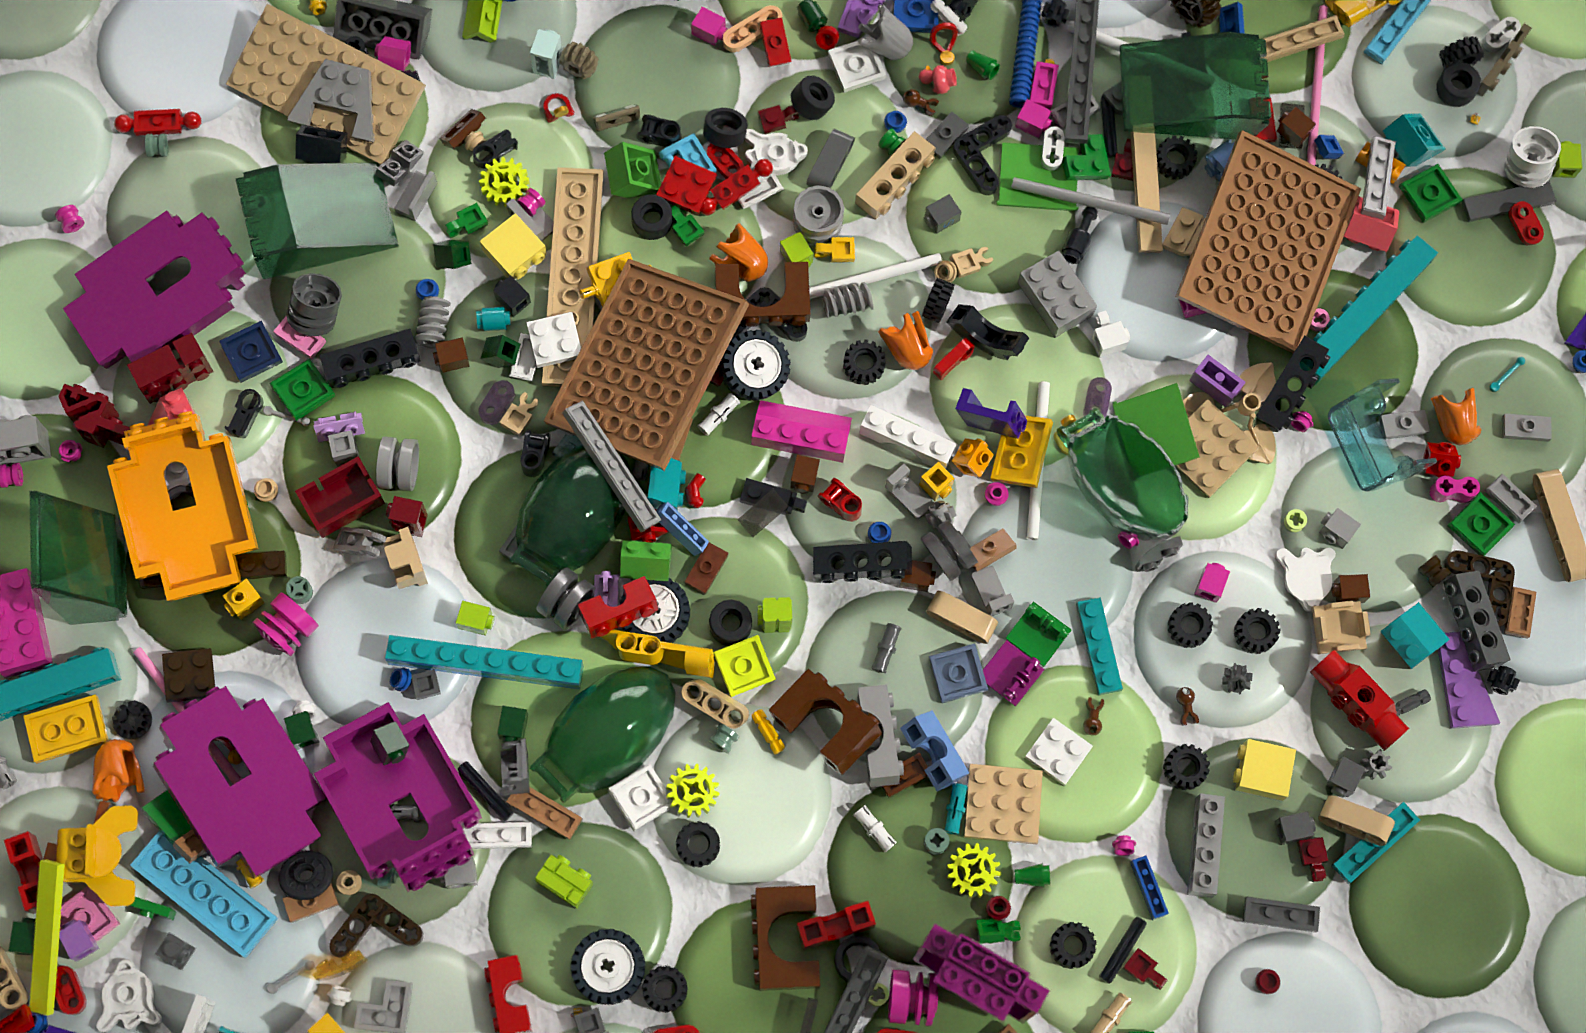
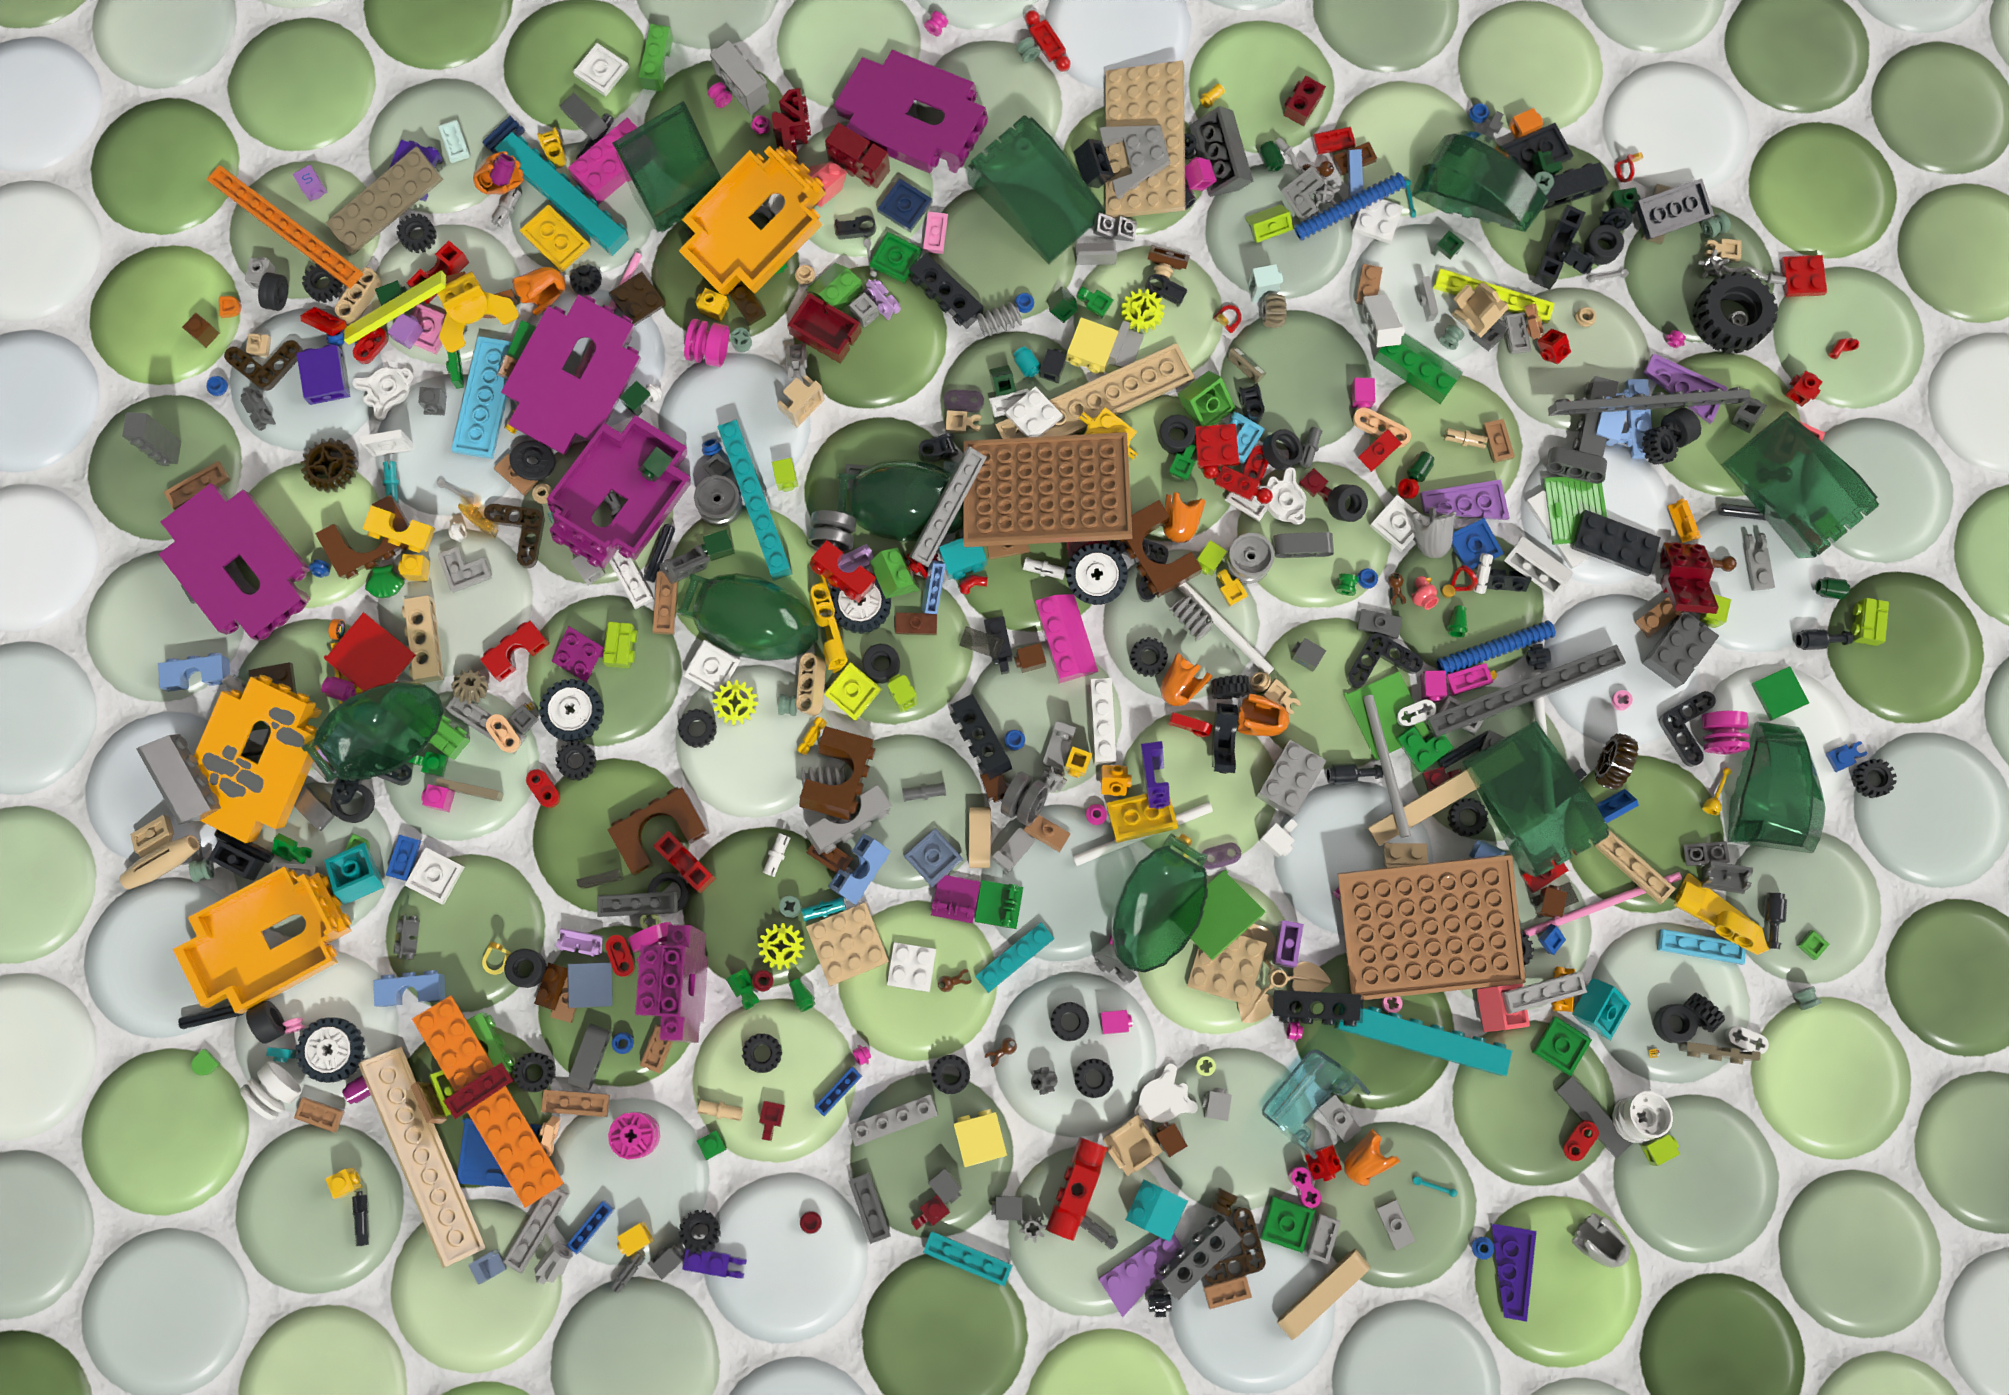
camera: 65 degrees right, 5 degrees up
(297, 464) = (836, 286): none -> bright green slope
(313, 304) = (961, 226): dark grey wheel -> none
(397, 463) = (871, 354): light grey wheel -> none
(407, 513) = (834, 383): dark red brick -> none
(451, 355) = (981, 347): reddish brown brick -> none
(459, 686) = (718, 512): none -> flat silver wheel
(531, 201) = (1136, 338): dark pink wheel -> none
(549, 930) = (578, 654): none -> magenta hinge
(734, 101) = (1310, 447): none -> dark grey axle
(824, 732) = (827, 777): none -> light grey piece
(837, 497) = (1024, 694): red piece -> none
(913, 148) = (1352, 602): tan brick -> none
(983, 287) = (1261, 717): none -> orange hair
(1123, 950) = (778, 1094): black axle -> none
(1356, 820) = (975, 1233): tan beam -> none

